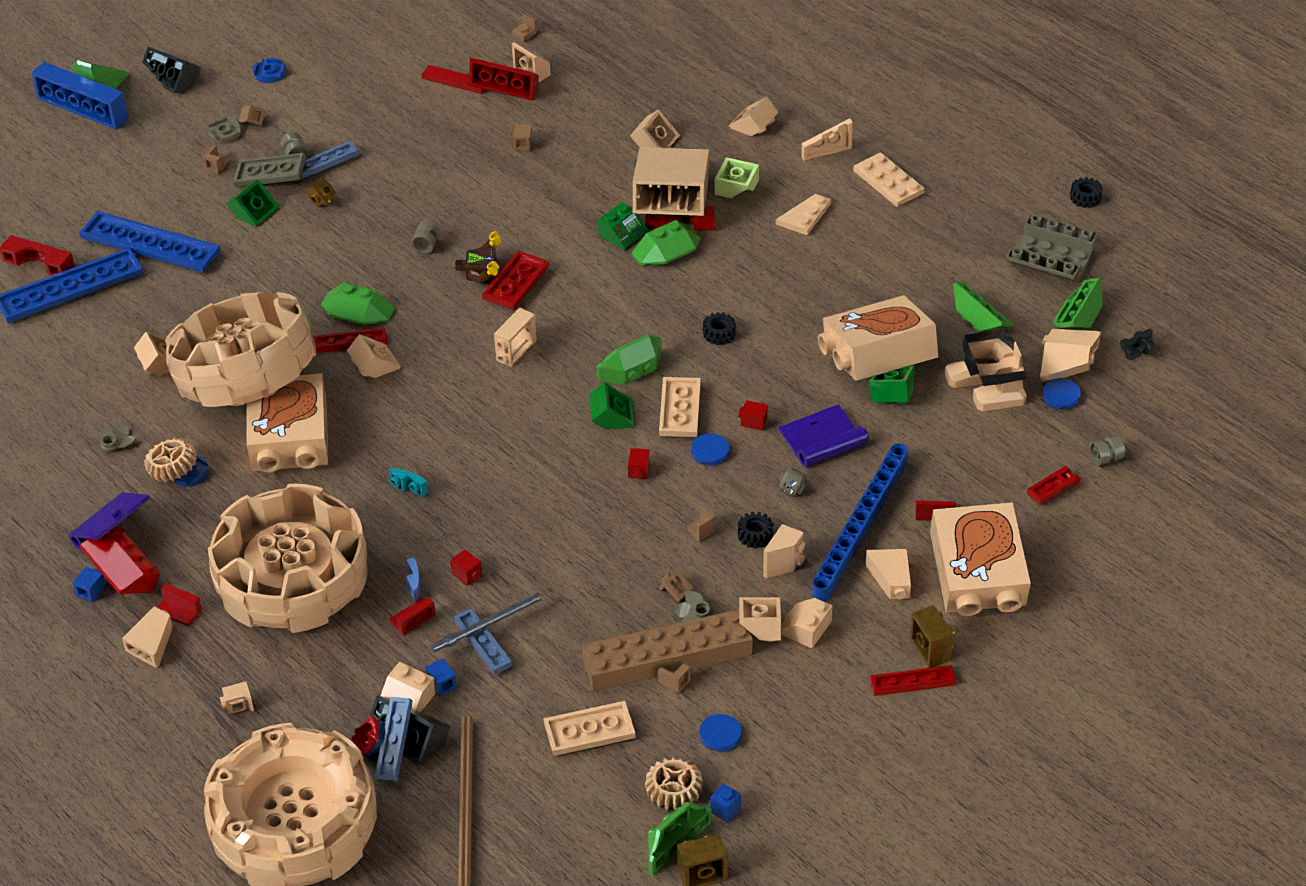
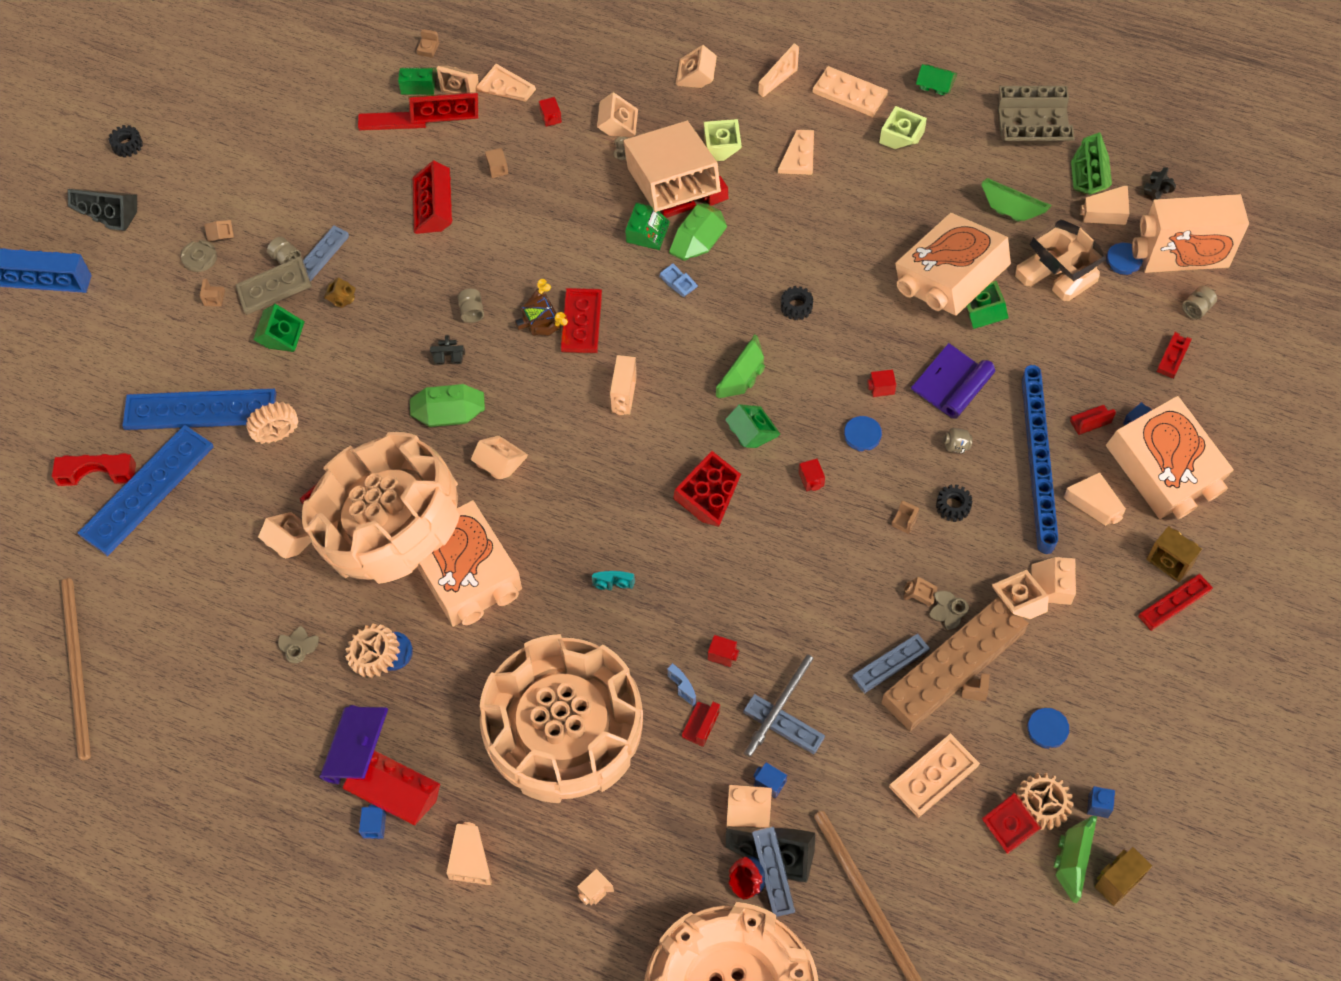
camera: 25 degrees left, 15 degrees up
(102, 74) = (42, 238): bright green wedge -> none
(180, 604) = (473, 808): red panel -> none
(198, 266) = (272, 422): none -> light nougat gear
(219, 26) = (123, 134): none -> black tyre
(269, 70) = (204, 172): blue tile -> none
(344, 340) = (466, 441): red tile -> none
(383, 262) = (445, 349): none -> pearl dark grey hips
(448, 147) = (432, 199): none -> red slope
(494, 52) = (417, 80): none -> green slope
(535, 438) = (708, 489): none -> red wedge
(572, 79) = (505, 84): none -> light nougat wing
(597, 112) = (550, 111): none -> red brick
(602, 630) = (890, 663): none -> sand blue plate
(623, 277) = (677, 280): none -> medium blue slope
(631, 787) = (1011, 823): none -> red tile
(679, 407) = (811, 399): light nougat plate -> none
(784, 552) = (999, 517): light nougat slope -> none
(913, 219) = (902, 128): none -> yellowish green slope
(977, 192) = (936, 78): none -> green slope
(1065, 360) = (1115, 225): light nougat slope -> none
(1084, 199) = (1026, 39): black tyre -> none
(1126, 383) = (1191, 233): none -> light nougat brick

